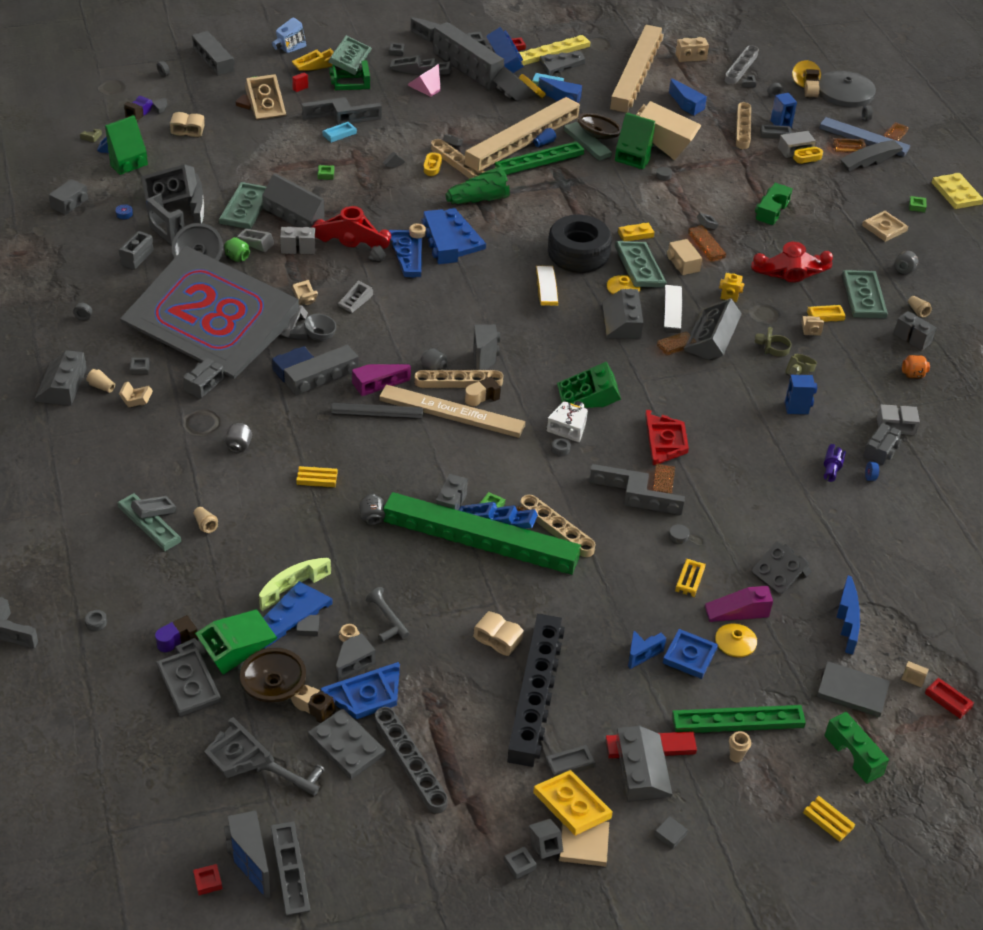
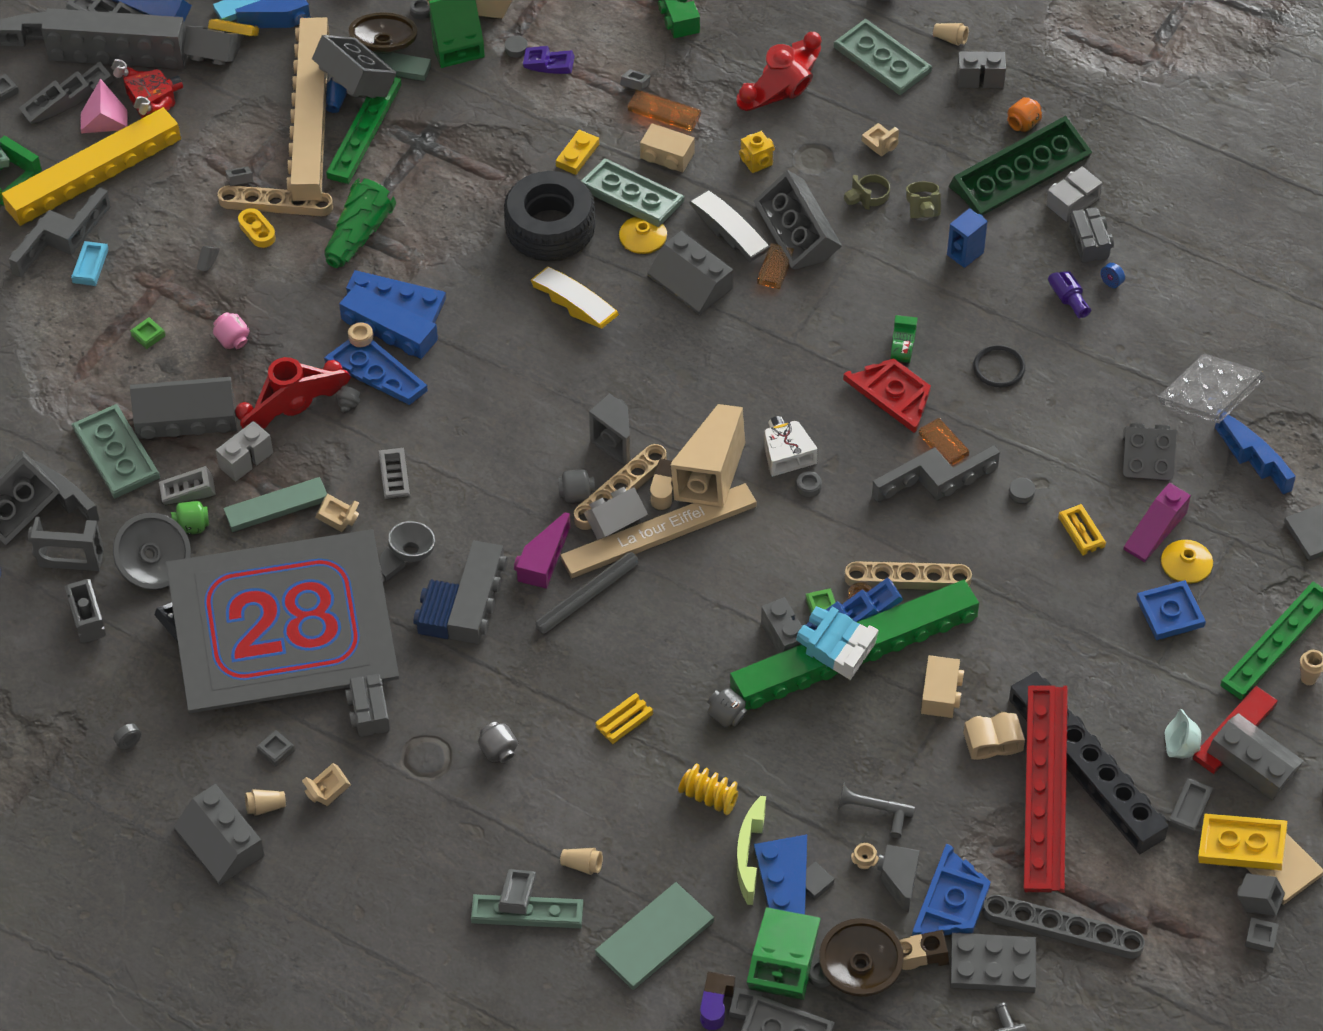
camera: 40 degrees left, 10 degrees up
(191, 582) = (654, 935): none -> sand green tile
(282, 271) = (275, 504): none -> sand green tile
(310, 537) = (709, 789): none -> yellow piece
(361, 192) = (231, 331): none -> bright pink head
(393, 96) = (91, 166): none -> yellow brick
(435, 382) = (615, 513): none -> light grey piece
(456, 85) = (147, 89): none -> red torso
(465, 515) = (837, 640): none -> medium azure hips
(487, 678) = (1046, 789): none -> red plate
(501, 587) = (941, 685): none -> tan brick
(516, 391) = (710, 458): none -> tan slope
(561, 124) = (353, 66): none -> dark grey brick
(591, 387) = (763, 391): green slope -> none
(609, 722) = (1182, 737): none -> light aqua piece
(644, 650) = (1126, 642): blue slope -> none
(671, 187) = (543, 60): none -> dark purple slope
(703, 418) = (903, 338): none -> green leg
(744, 481) = (998, 384): none -> black tyre
(827, 313) = (873, 111): yellow tile -> none
(861, 562) = (1211, 388): none -> clear plate
(882, 387) = (1021, 166): none -> dark green arch

